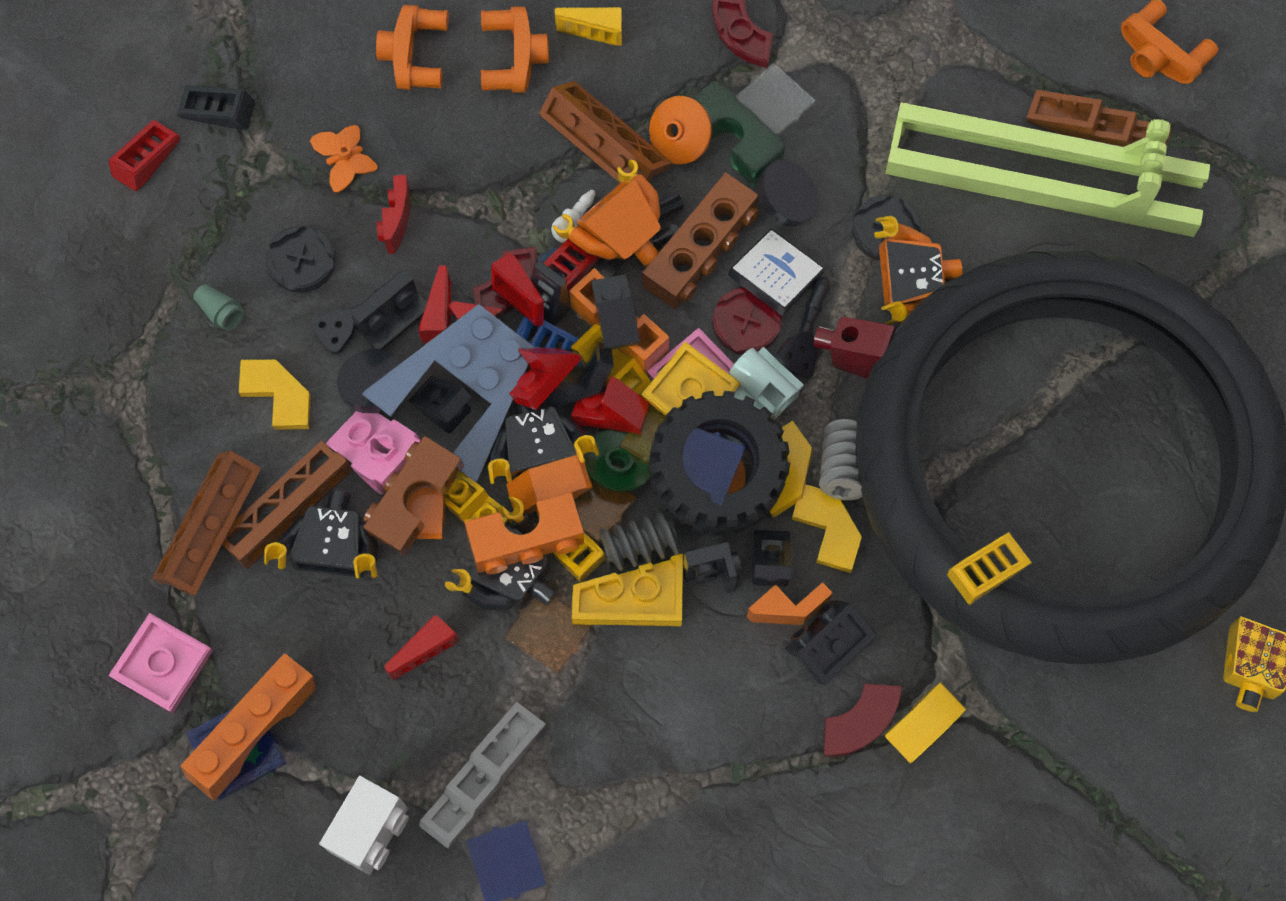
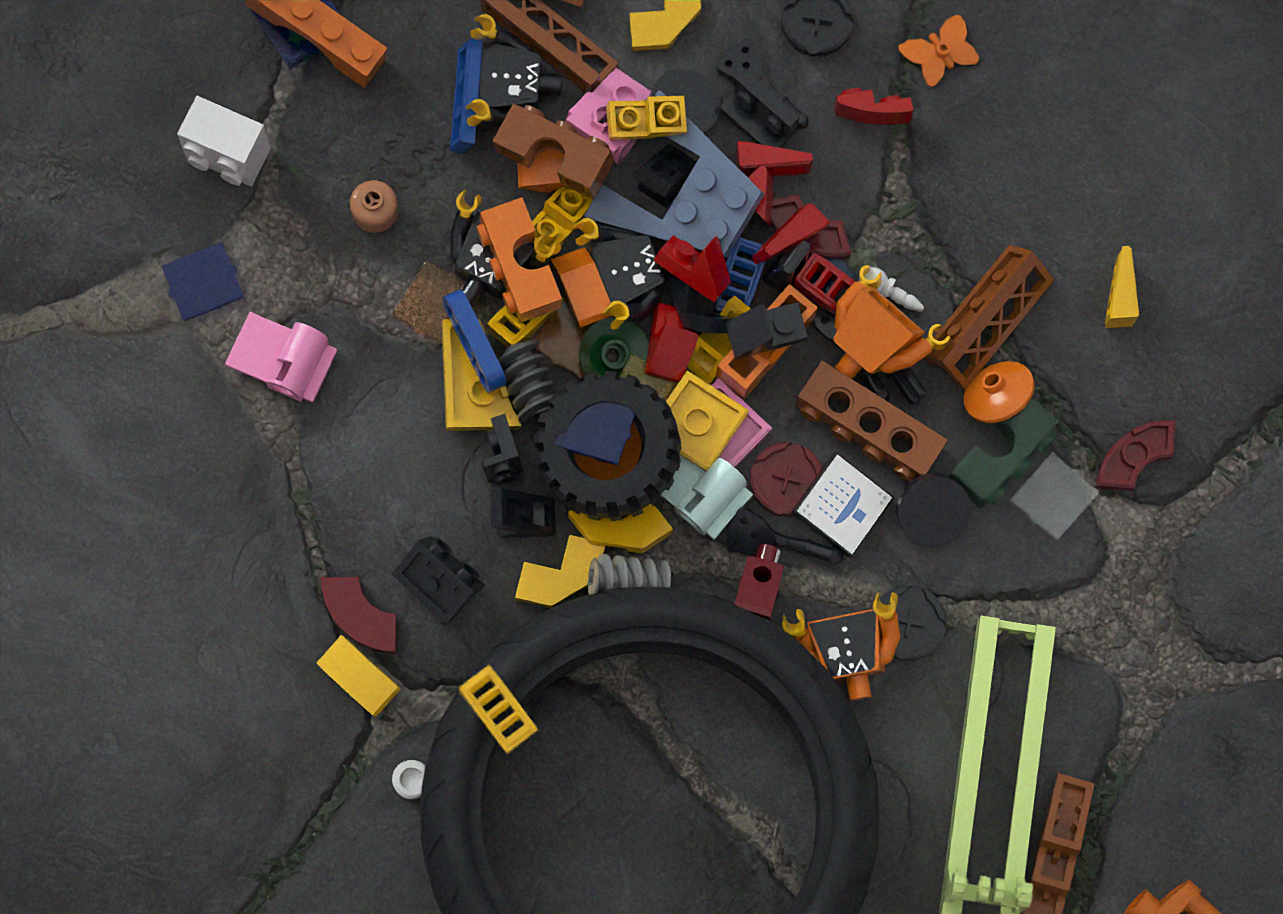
camera: 80 degrees right, 5 degrees up
(339, 584) = (466, 91): none -> blue tile
(390, 406) = (646, 118): none -> yellow slope
(399, 45) = (1073, 92): orange connector -> none
(424, 645) = (413, 186): red slope -> none
(458, 685) = (374, 206): none -> nougat head
(482, 775) = (285, 250): light grey slope -> none
(528, 50) = (1084, 223): orange connector -> none
(596, 781) = (268, 348): none -> bright pink piece
(599, 586) = (474, 340): none -> blue beam
(778, 608) = (469, 523): orange slope -> none
(1025, 679) = (408, 779): none -> white tile

